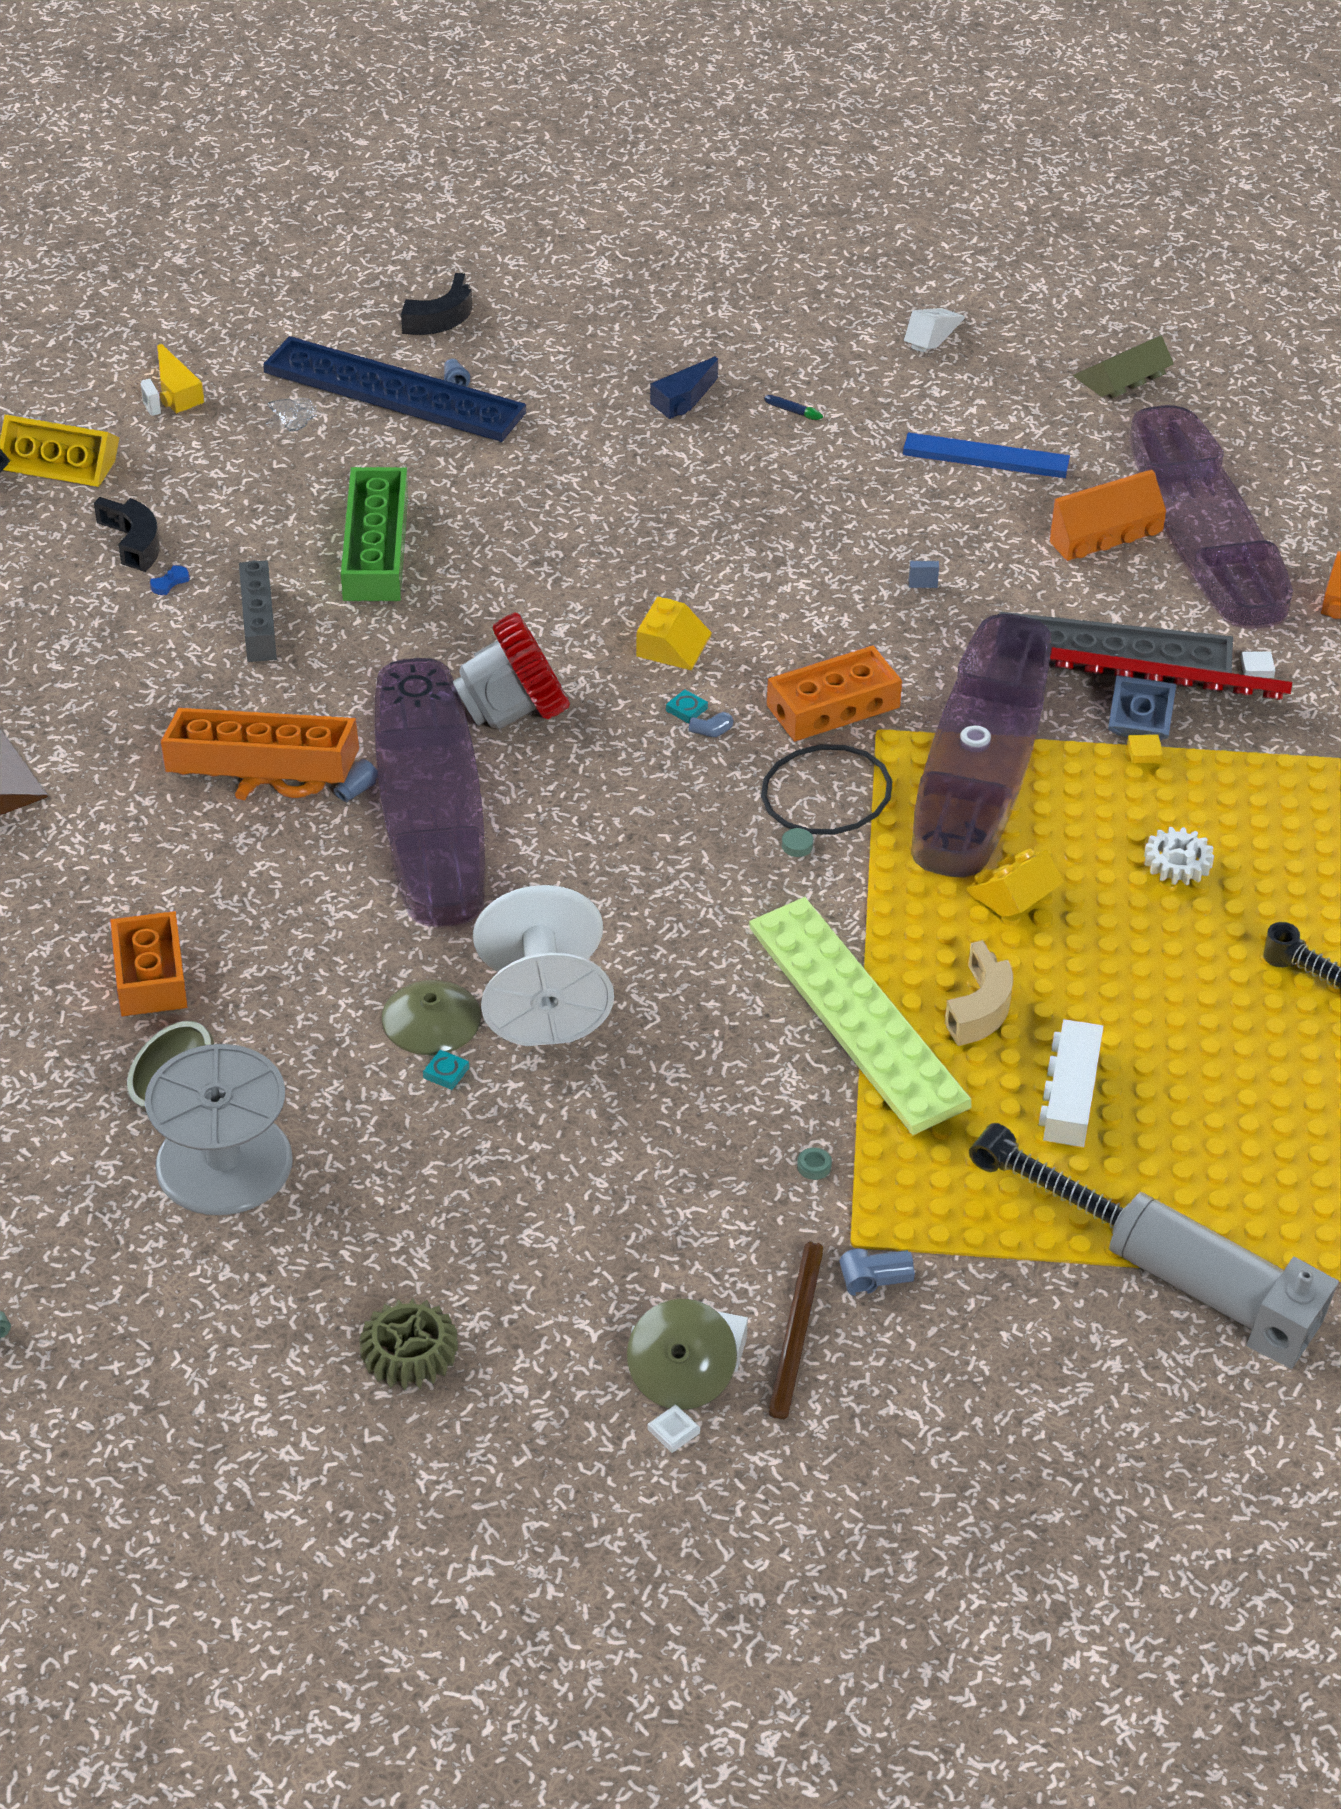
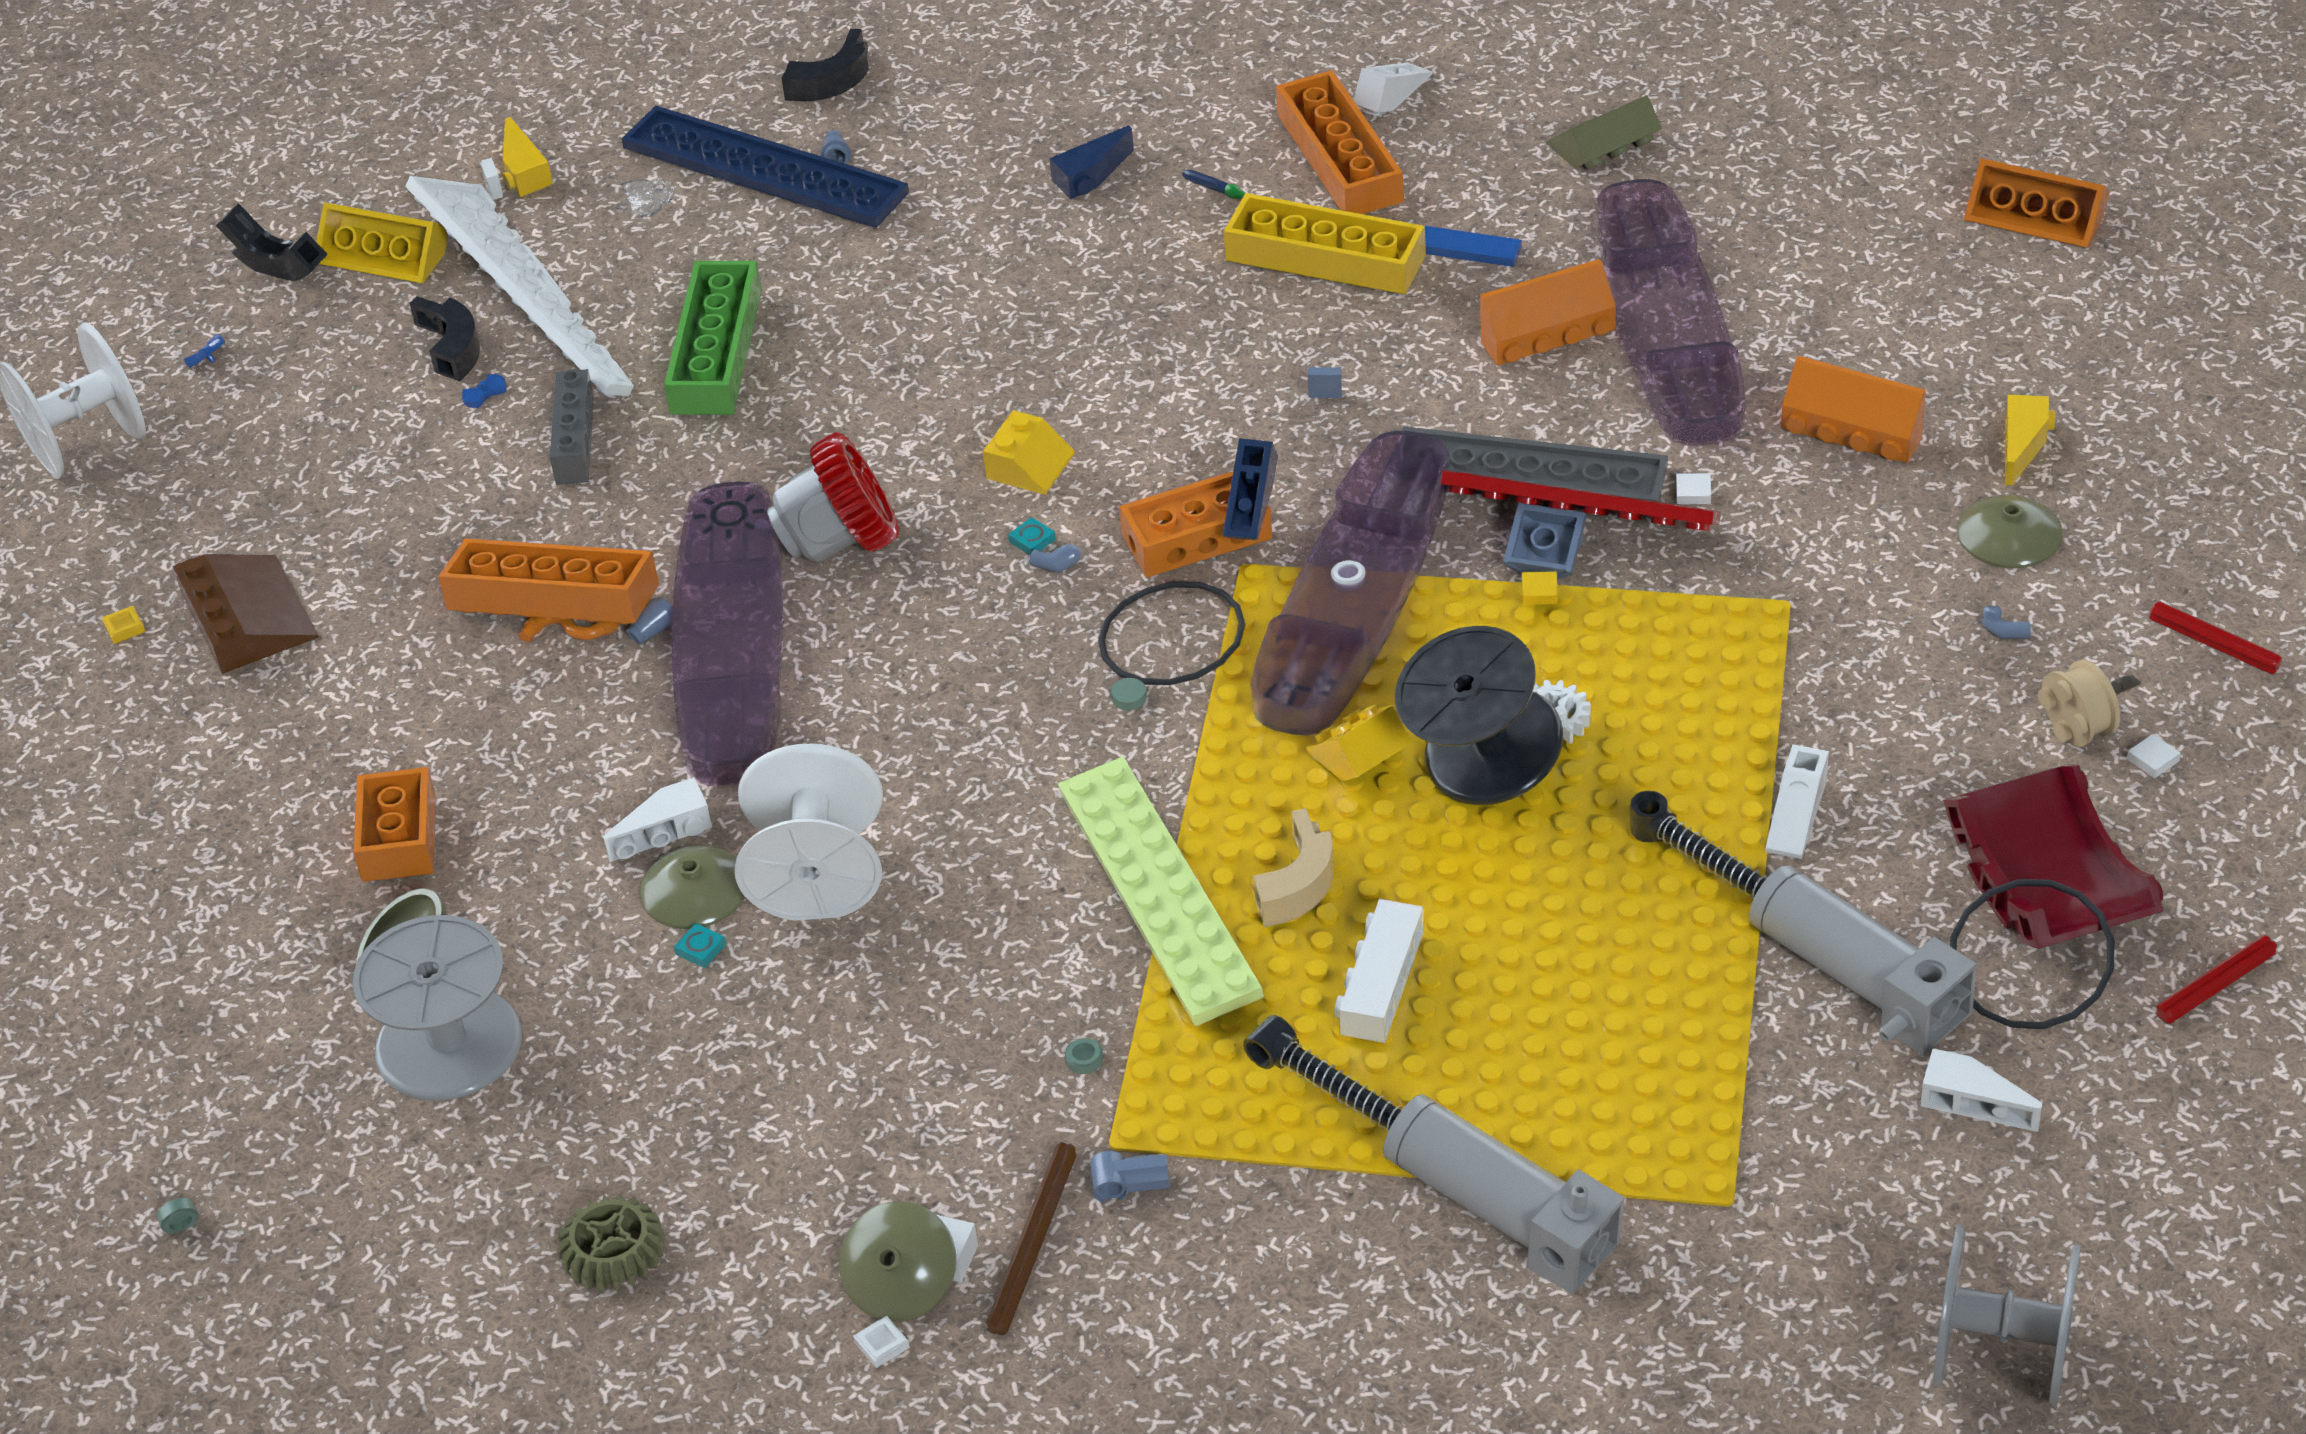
camera: 10 degrees right, 0 degrees up
(152, 443) = (471, 219): none -> white wing
(396, 955) = (662, 818): none -> white slope
(885, 663) = (1250, 488): none -> dark blue slope
(900, 374) = (1339, 143): none -> orange brick
(903, 456) = (1325, 243): none -> yellow brick
(1128, 856) = (1479, 715): none -> black piece

